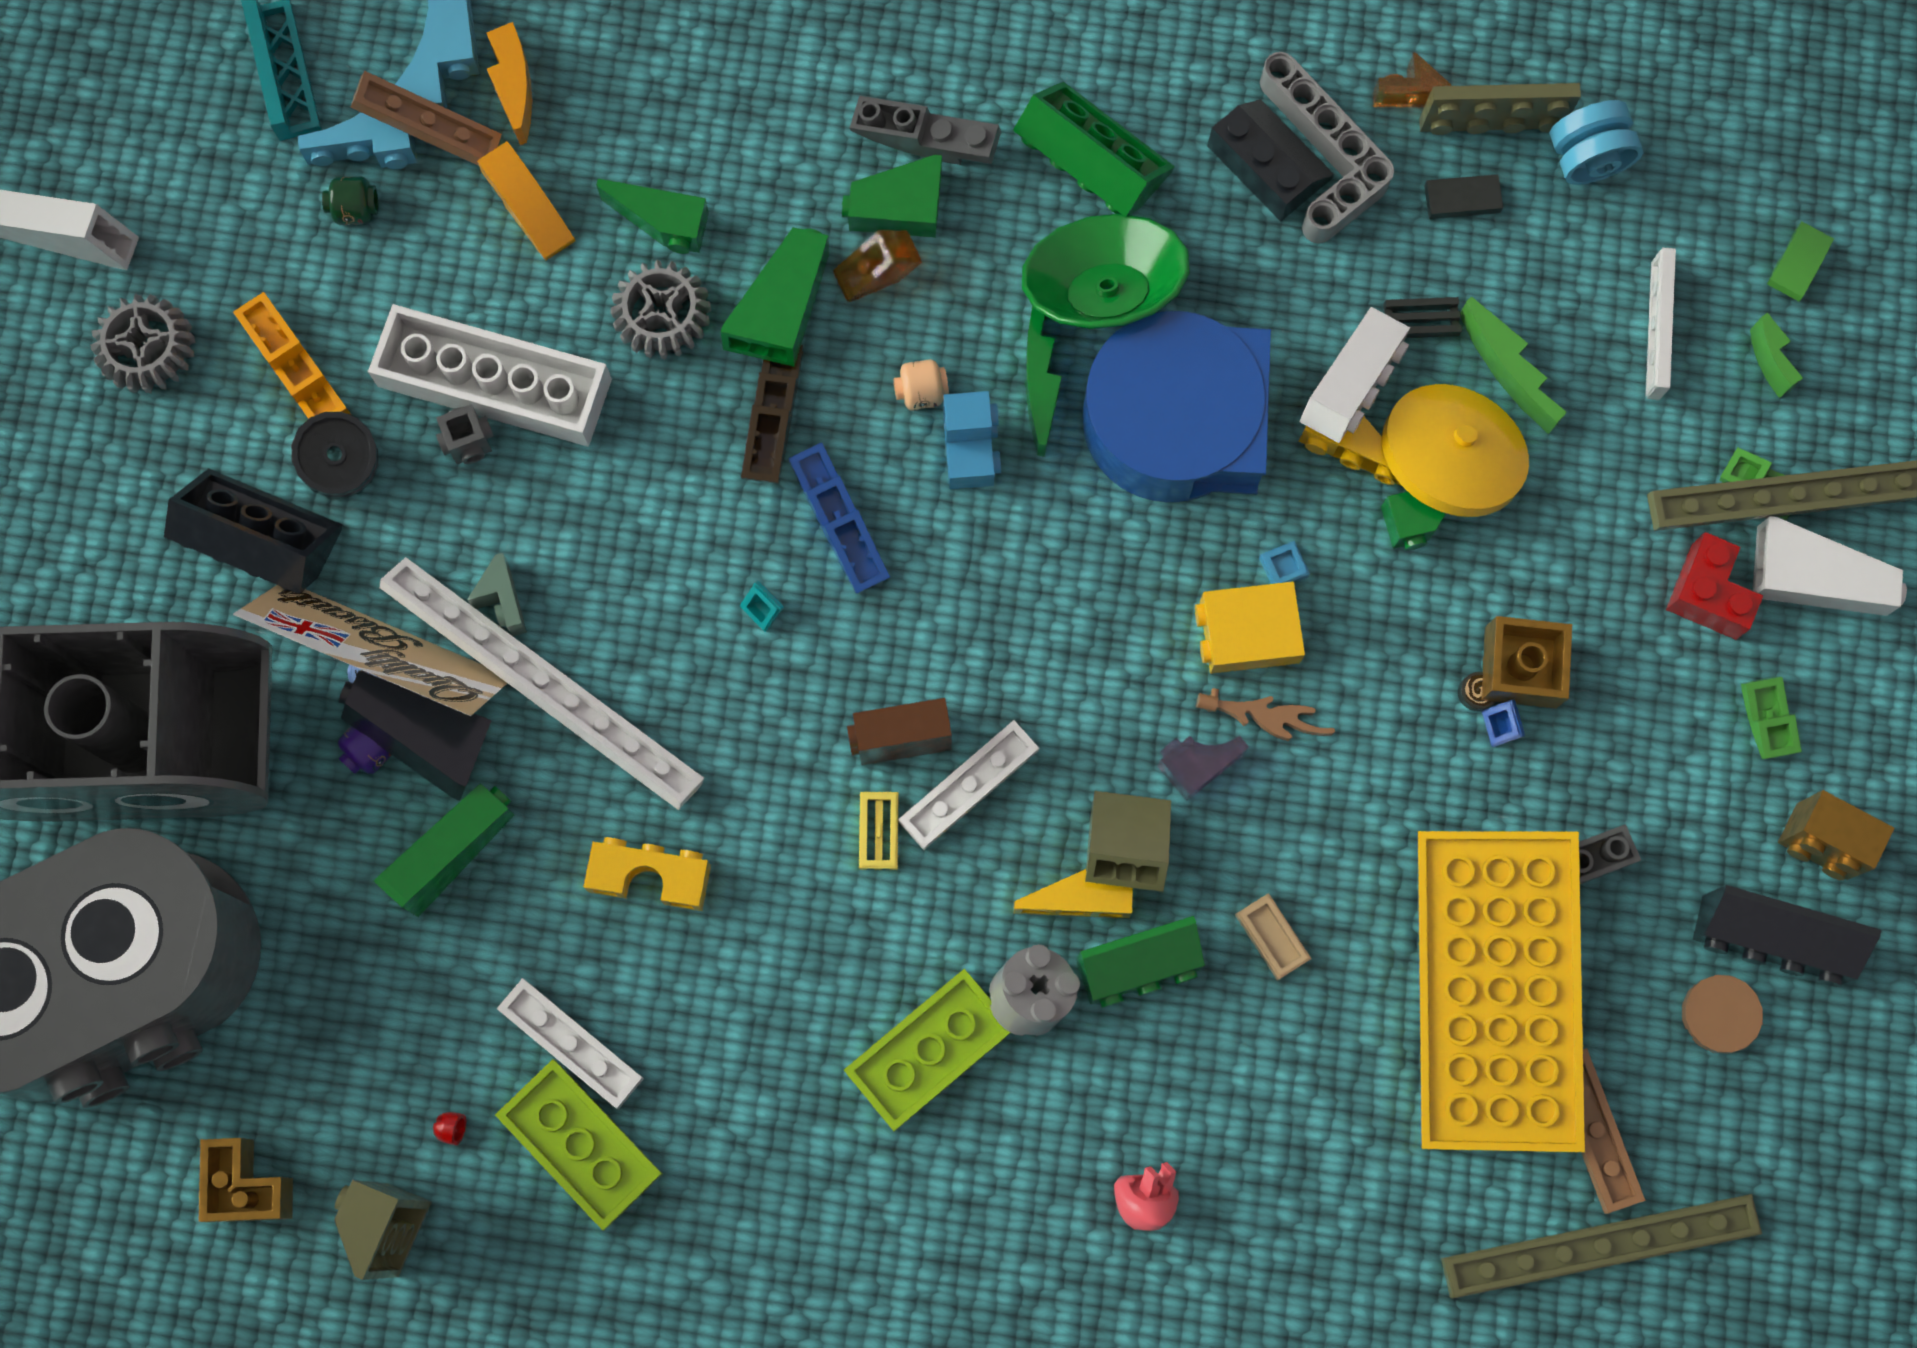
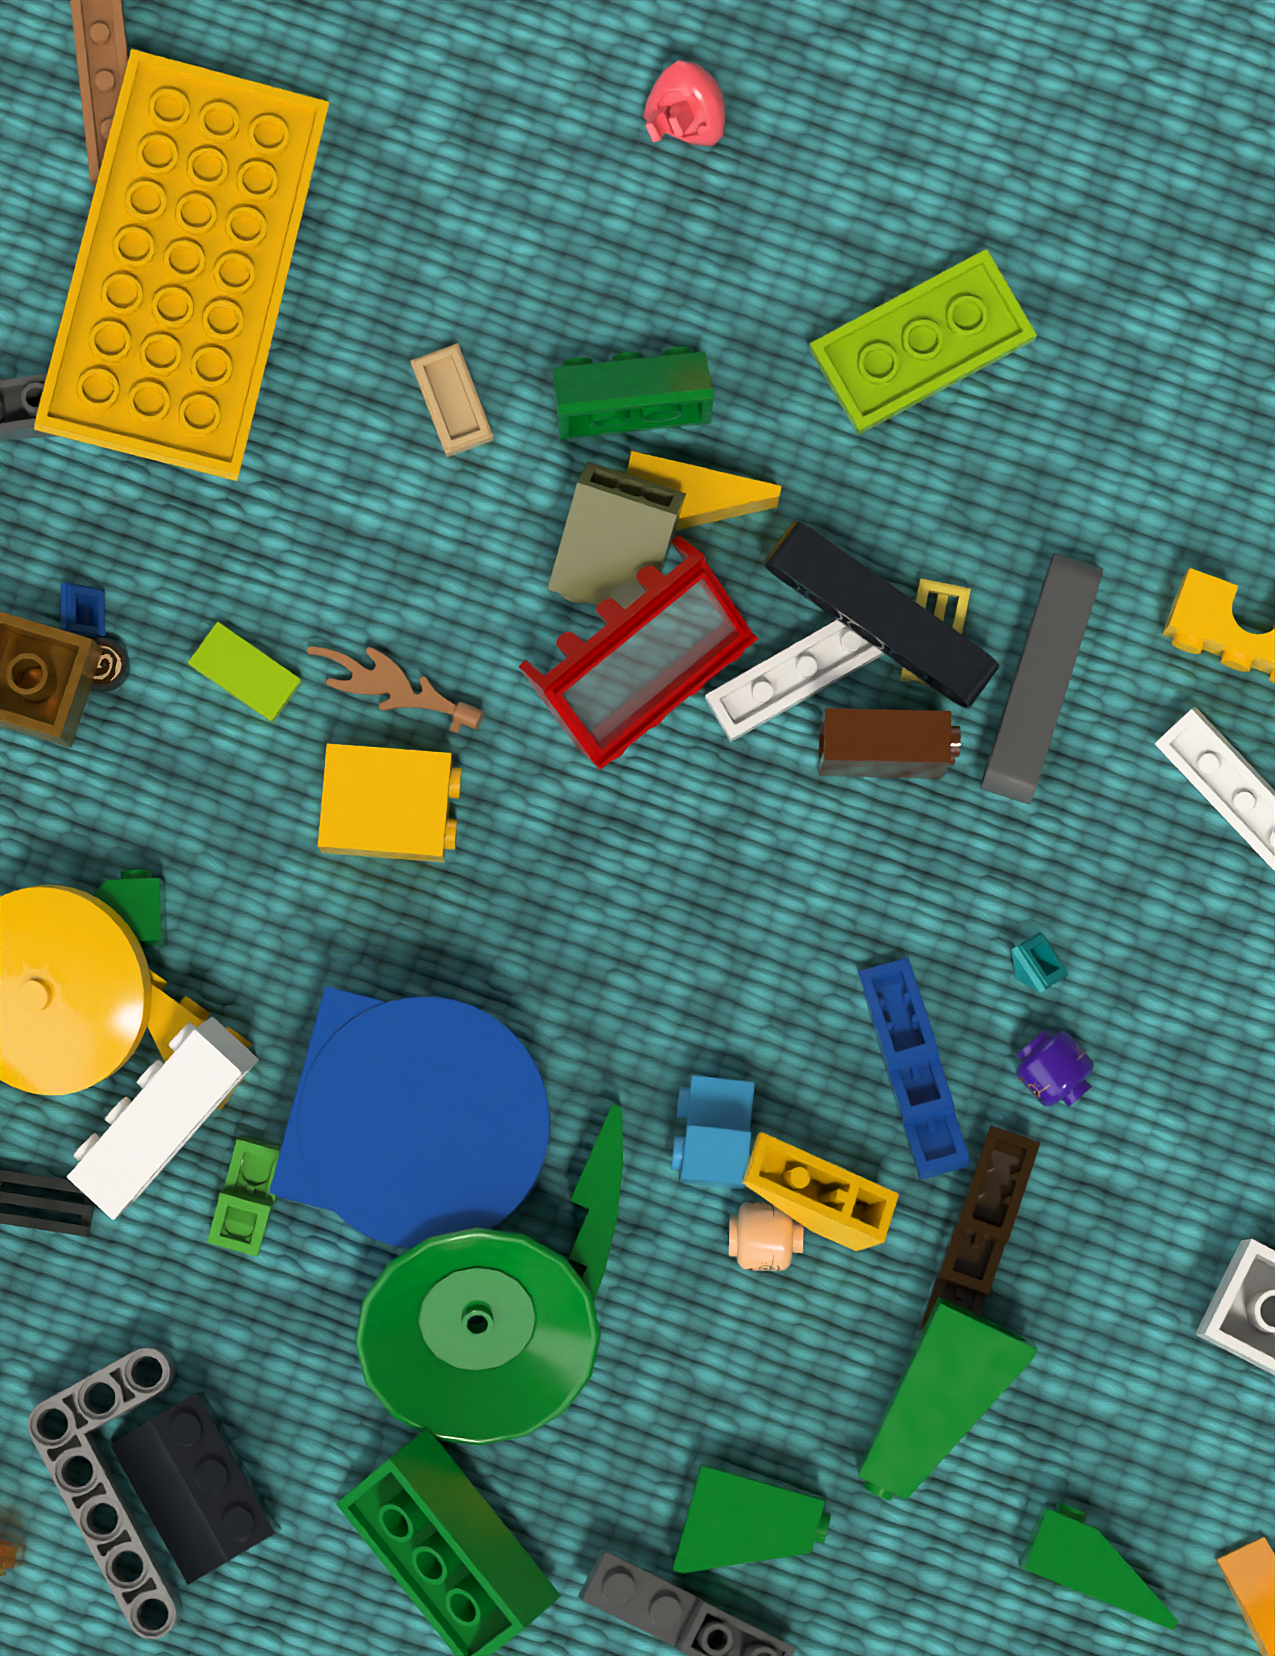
camera: 170 degrees left, 5 degrees up
(680, 289) = (1125, 1442): light grey gear -> none
(738, 534) = (1055, 1068): none -> dark purple head
(794, 811) = (1041, 678): none -> dark grey beam
(877, 264) = (793, 1428): clear orange slope -> none
(890, 408) = (820, 1194): none -> yellow slope
(923, 825) = (881, 614): none -> black beam
(1038, 972) = (750, 371): light grey brick -> none
(1089, 755) = (643, 657): none -> window
(1194, 765) = (500, 632): clear purple arch -> none
(1284, 346) = (245, 1201): none -> bright green slope
(1284, 564) = (320, 885): dark azure tile -> none
(1375, 704) = (245, 672): none -> lime tile

